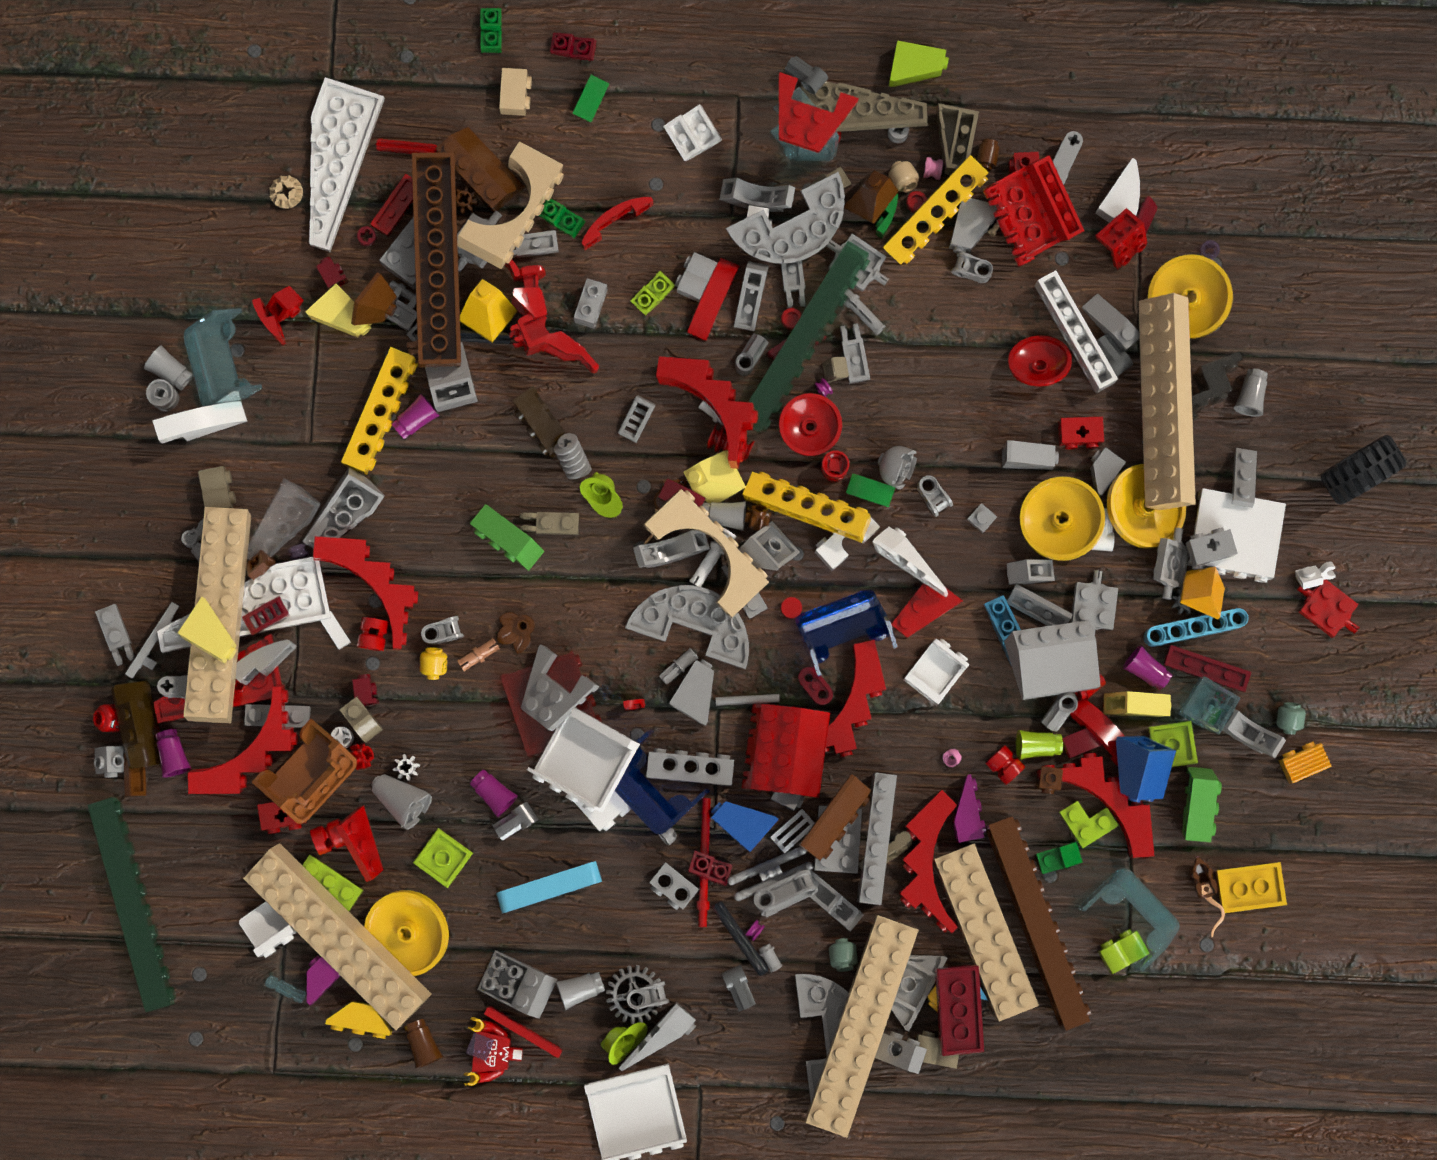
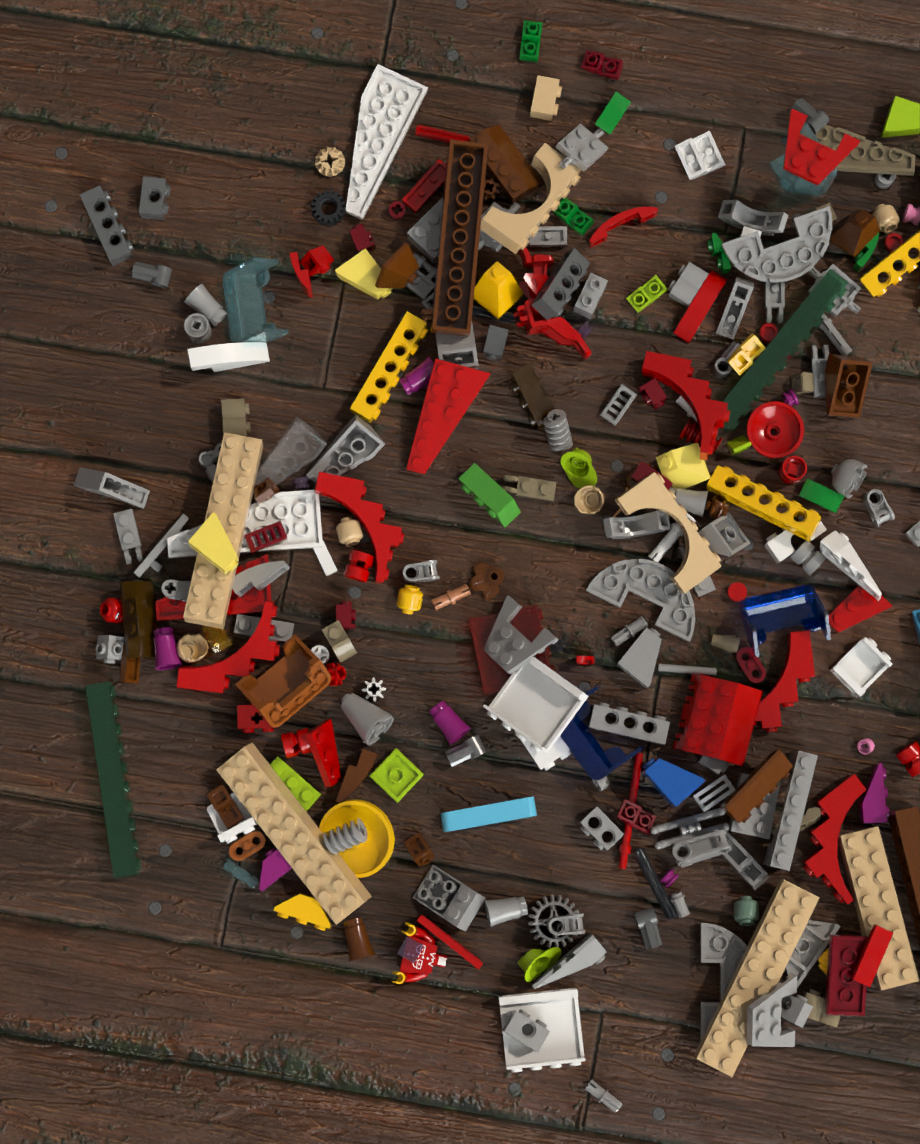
camera: 10 degrees right, 0 degrees up
(27, 269) = (115, 253): none -> dark grey brick
(89, 582) = (111, 486): none -> light grey arch
(91, 246) = (150, 187): none -> dark grey brick
(111, 342) = (156, 275): none -> dark grey piece
(200, 748) = (192, 648): none -> tan hair
(227, 734) = (217, 638): none -> clear yellow slope
(259, 917) = (225, 806): none -> reddish brown slope
(281, 235) = (328, 197): none -> black tyre
(289, 957) = (247, 845): none -> dark orange plate
(357, 597) = (349, 532): none -> tan head
(393, 933) = (345, 837): none -> light grey piece
(398, 864) = (356, 775): none -> reddish brown slope
(446, 437) = (446, 401): none -> red wing
(477, 936) = (419, 849): none -> reddish brown bracket
(492, 369) = (495, 343): none -> dark grey slope
(555, 295) = (561, 284): none -> dark grey brick
(560, 141) = (581, 147): none -> light grey plate
(590, 342) = (585, 330): none -> clear purple bush
(616, 528) = (589, 499): none -> tan hair
(628, 1126) = (538, 1030): none -> light grey brick
(672, 403) = (653, 394): none -> dark red brick
(719, 230) = (714, 245): none -> green slope
(767, 346) = (745, 353): none -> yellow slope
(773, 446) = (738, 445): none -> lime slope
(786, 664) = (726, 642): none -> dark tan cone
(863, 559) = (806, 555): none -> light grey wheel
(875, 1069) = (765, 1017): none -> light grey wing
(882, 365) = (846, 384): none -> reddish brown slope
(983, 985) = (872, 955): none -> red tile

